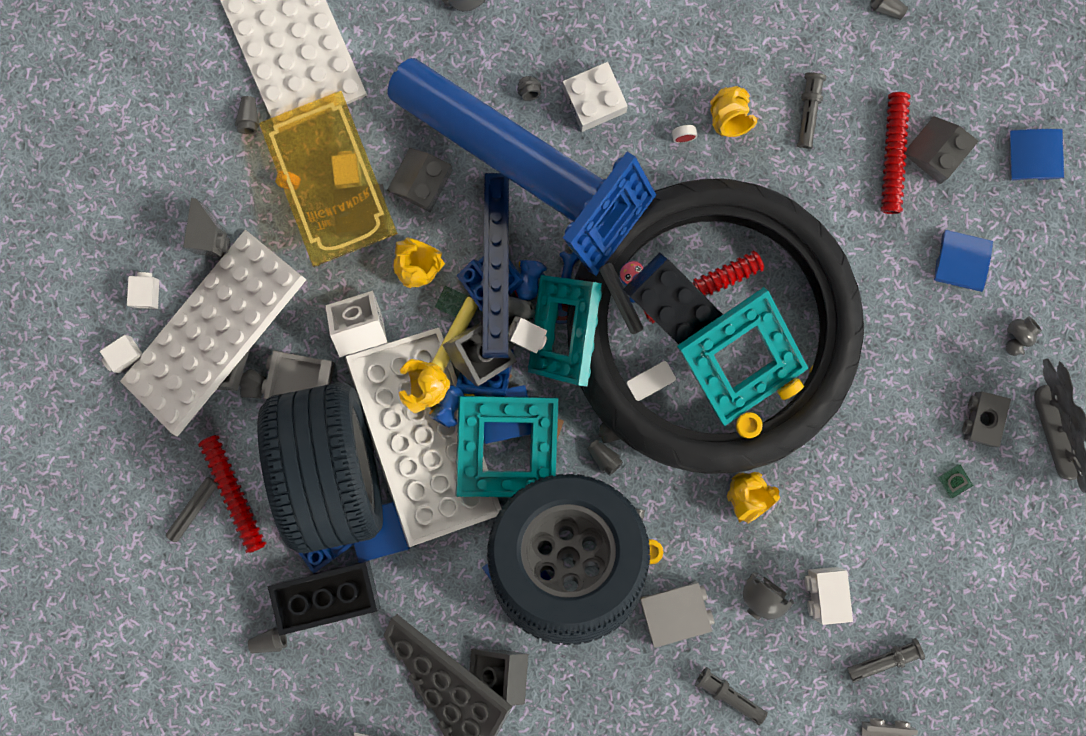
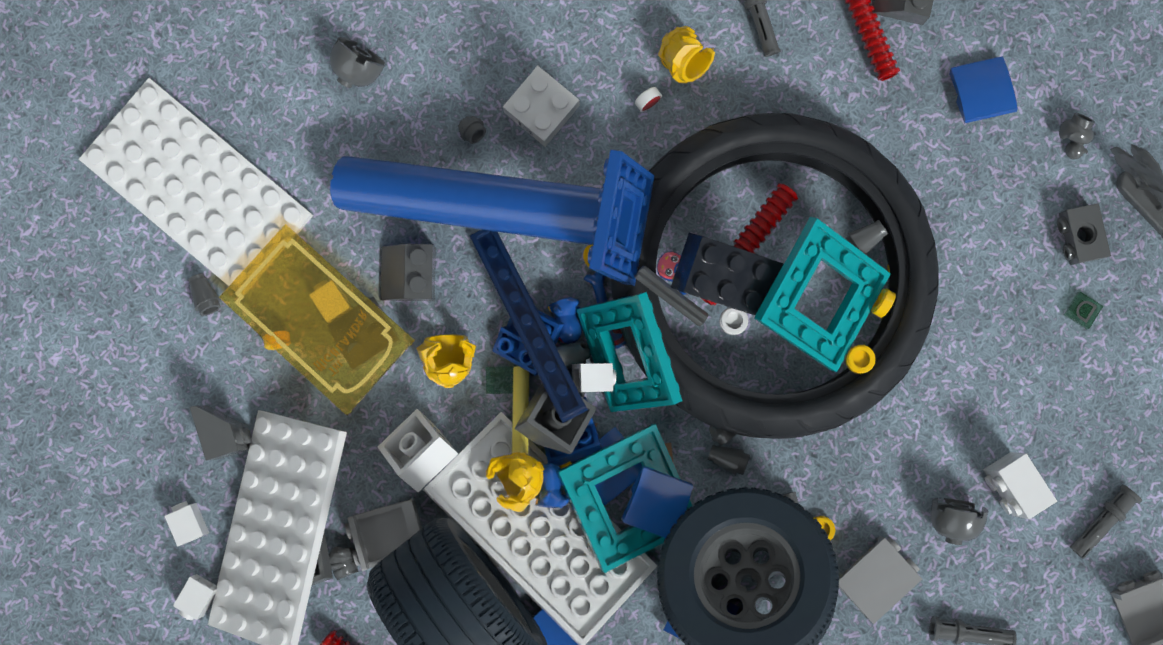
camera: 30 degrees left, 0 degrees up
(527, 459) = (656, 501): none -> blue slope
(651, 381) = (741, 362): white sticker -> none
(661, 344) = (733, 321): none -> white tile
(751, 496) = (893, 425): yellow helmet -> none
(804, 329) = (867, 236): none -> dark grey cone

